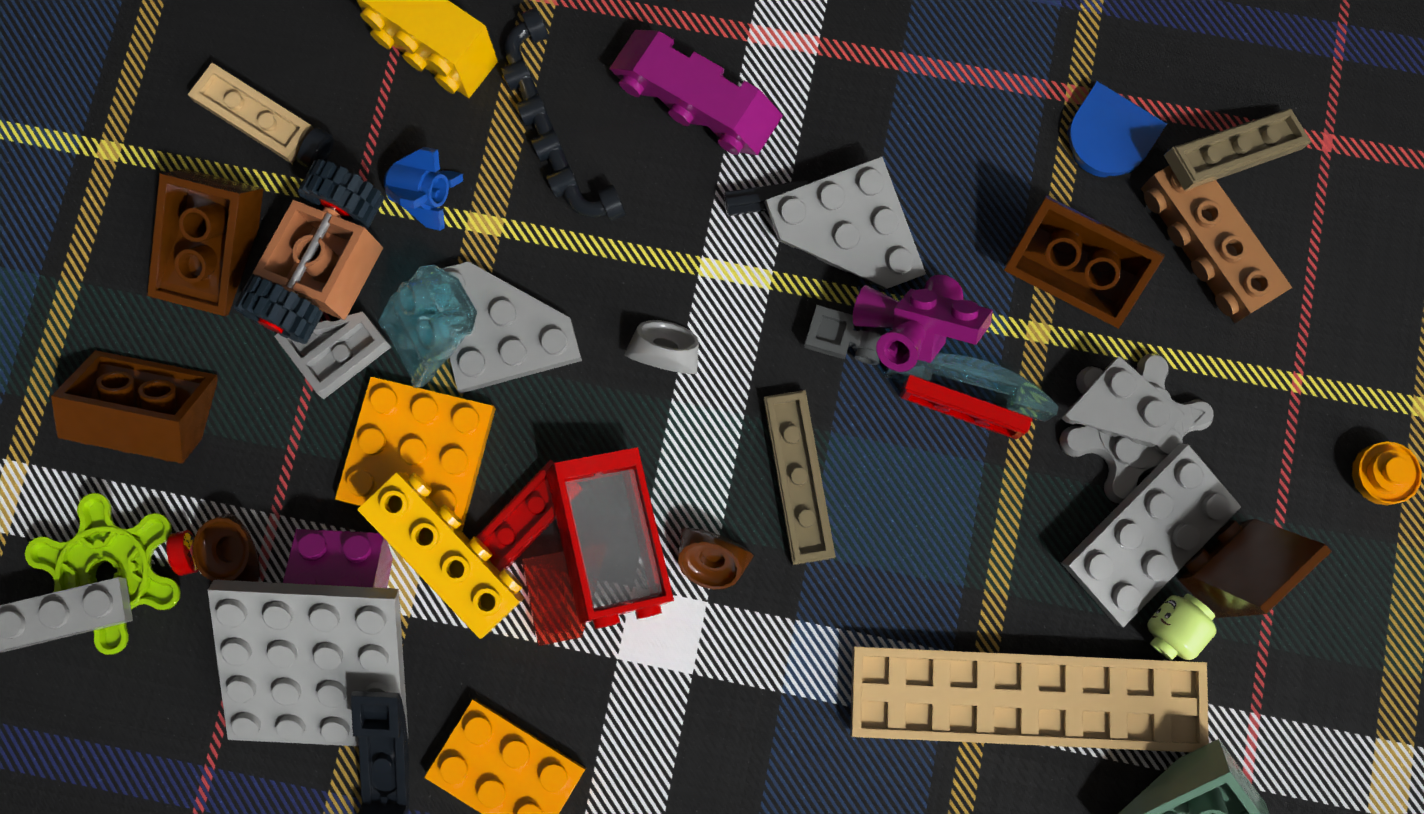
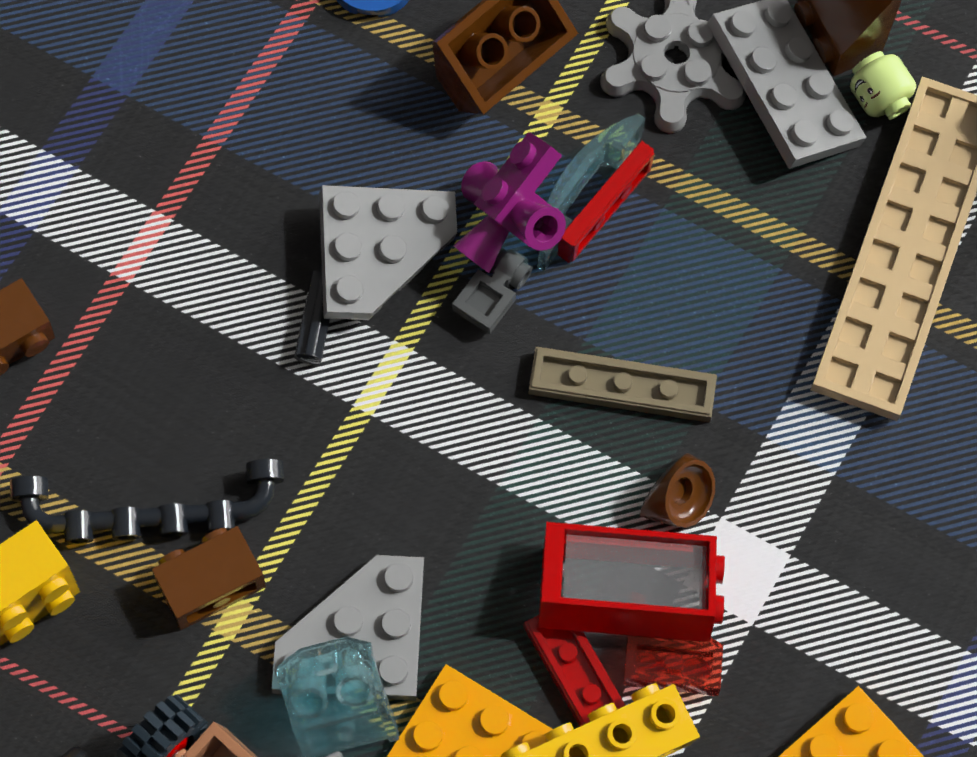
camera: 75 degrees left, 10 degrees down
(420, 186) = (173, 663): blue brick -> none
(505, 188) = (208, 576): none -> reddish brown brick
(665, 346) = (442, 468): light grey piece -> none
(696, 92) = (176, 345): magenta brick -> none
(1125, 406) = (655, 56): light grey wing -> none

